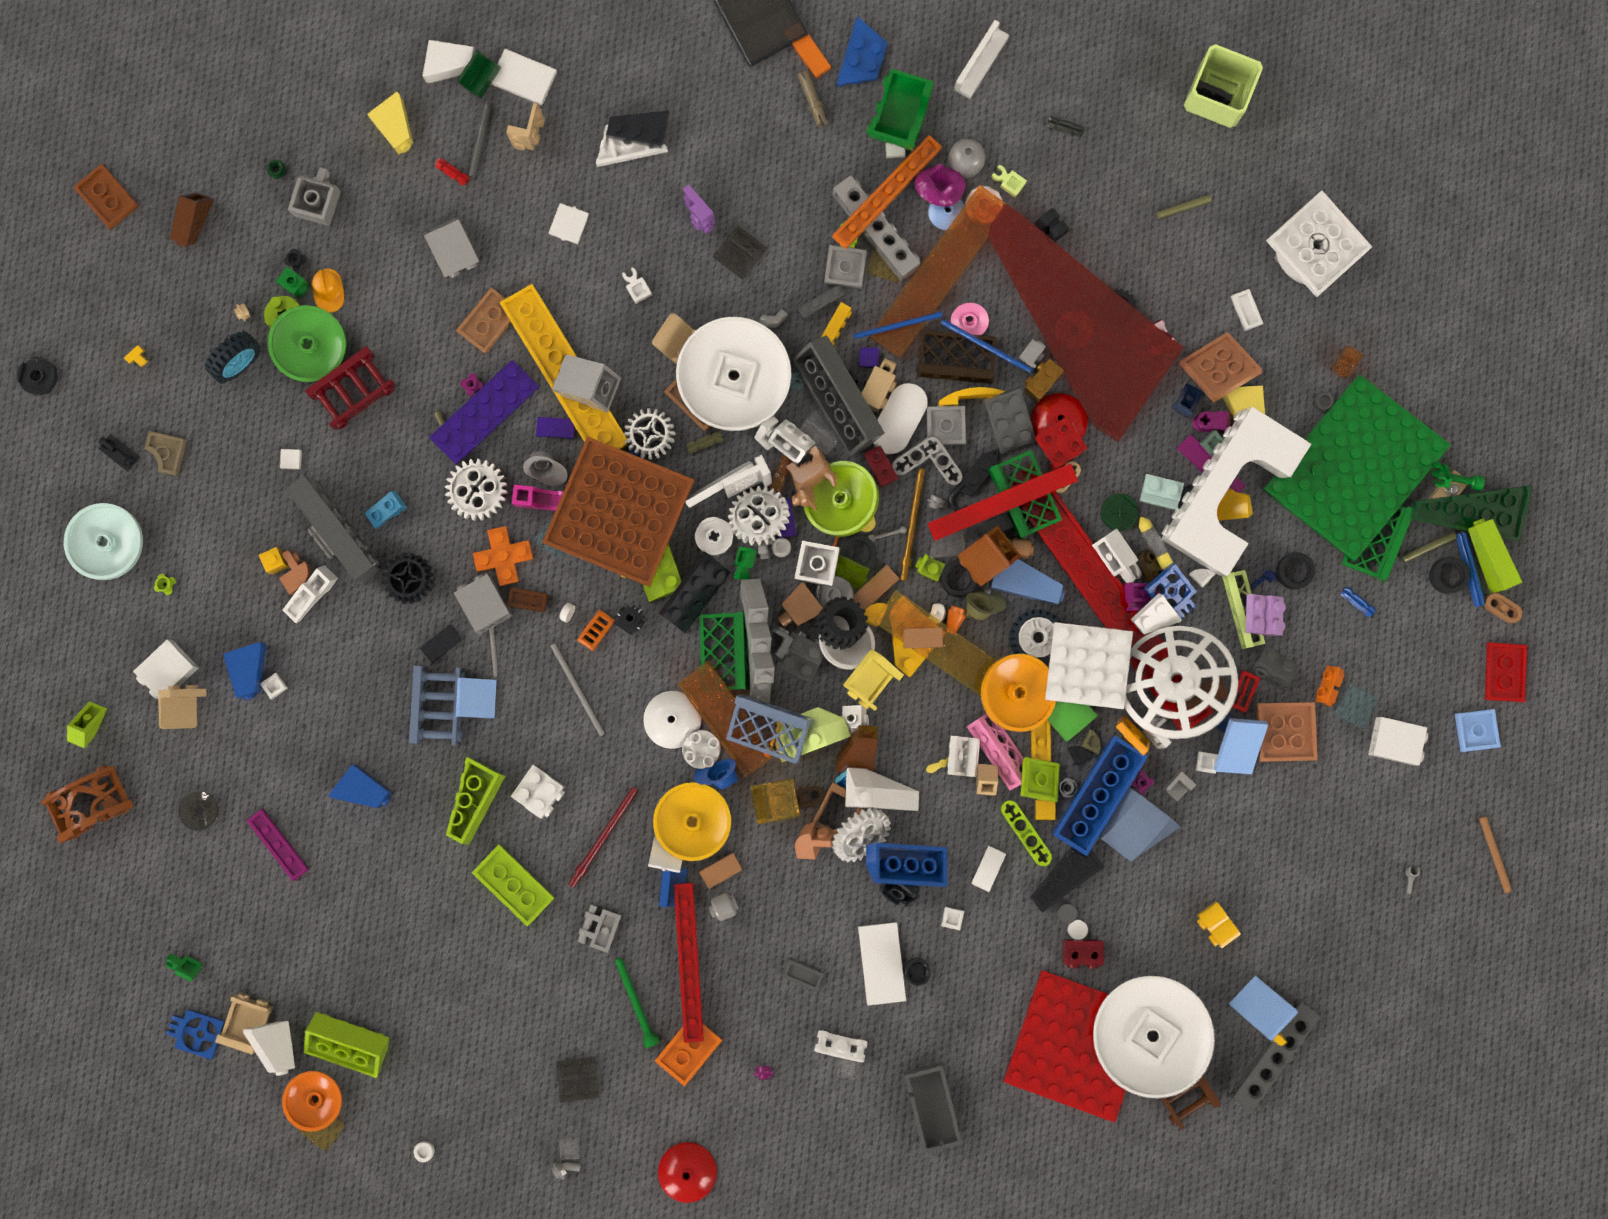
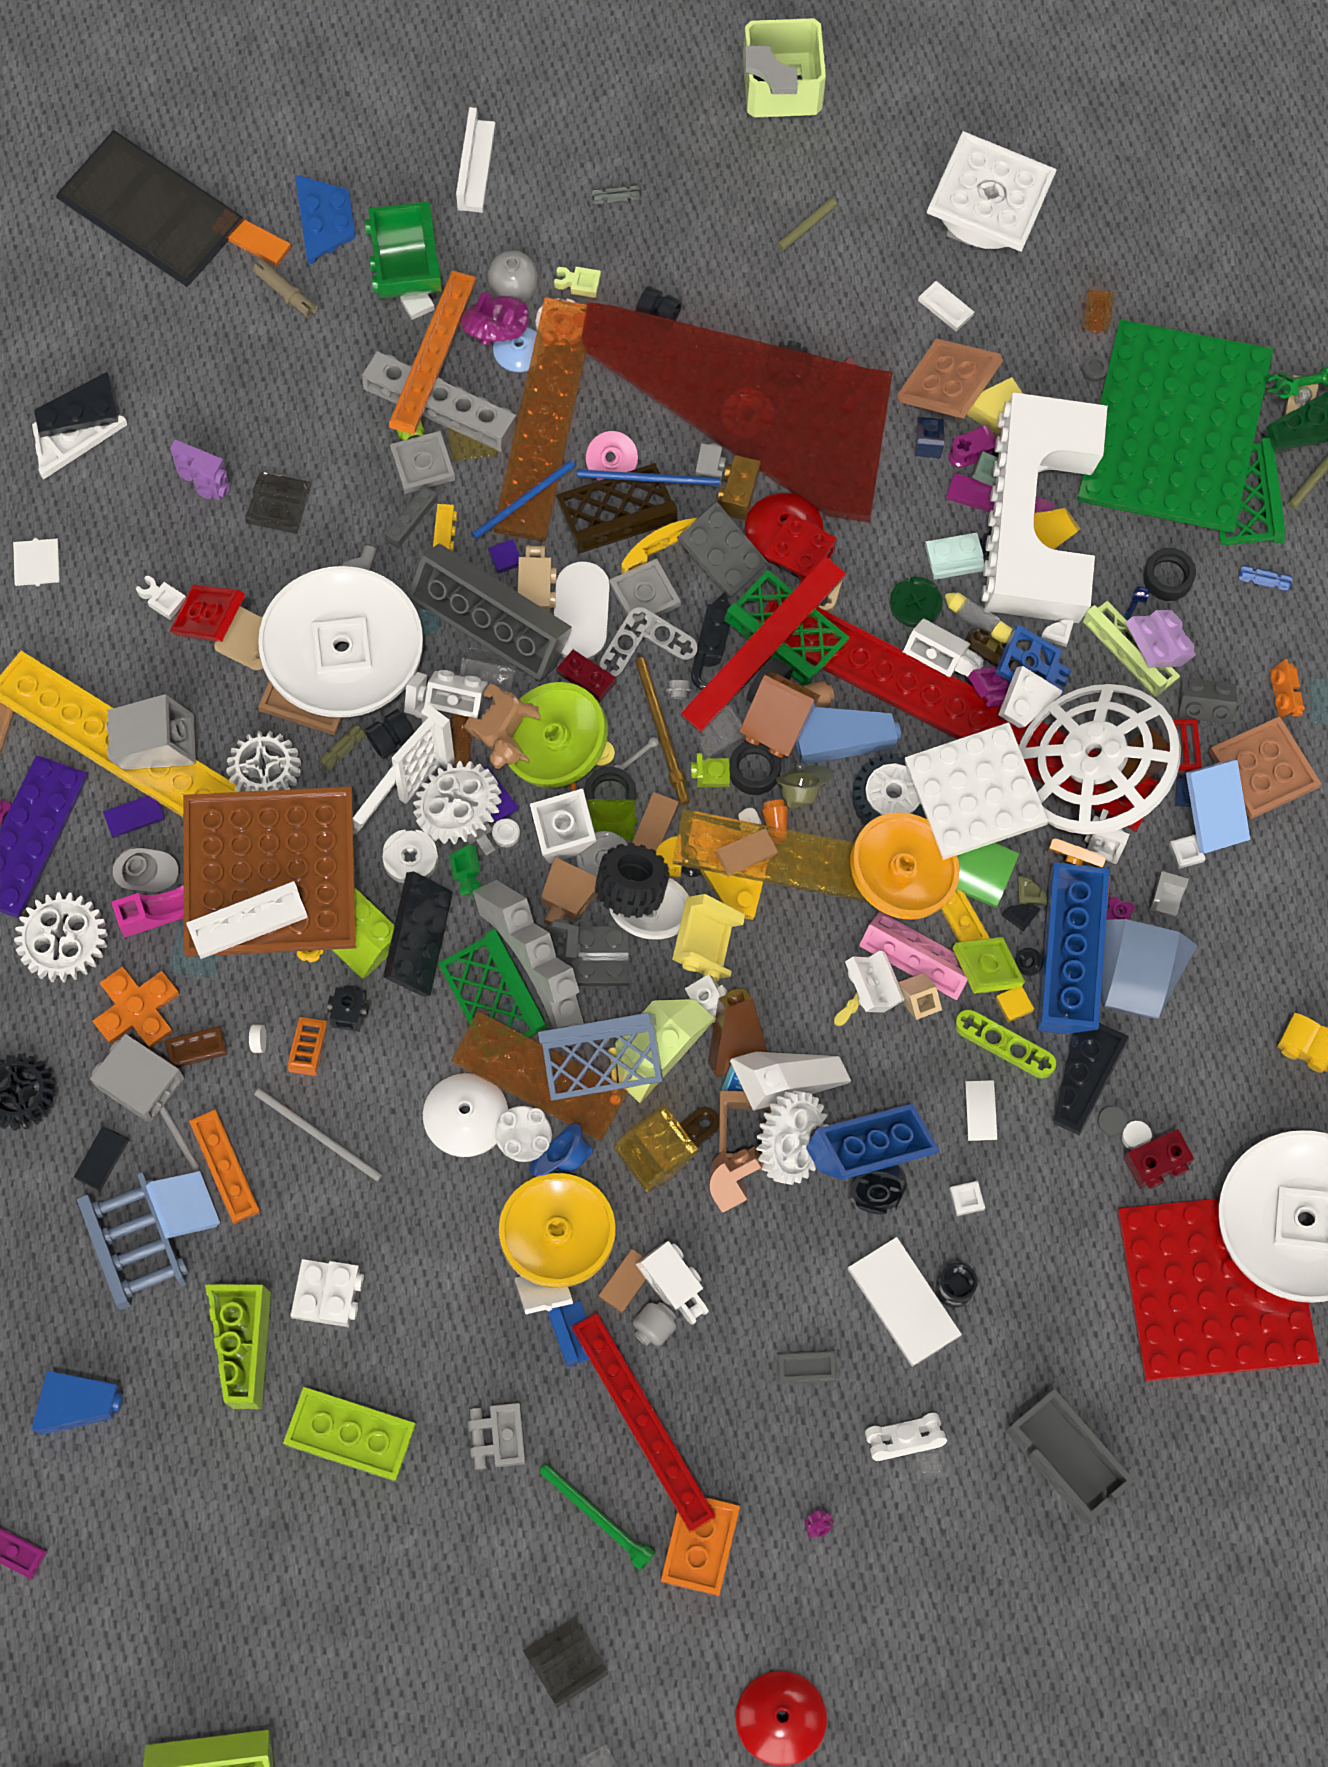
camera: 30 degrees left, 15 degrees down
(512, 683) = (224, 1166): none -> orange tile
(581, 869) = (435, 1368): dark red bar -> none
(588, 541) = (247, 920): none -> white fence
(658, 314) = (207, 612): none -> red tile
(738, 448) = (386, 735): none -> black wheel
(747, 885) = (673, 1280): none -> white brick
(1207, 83) = (762, 63): none -> light grey tile

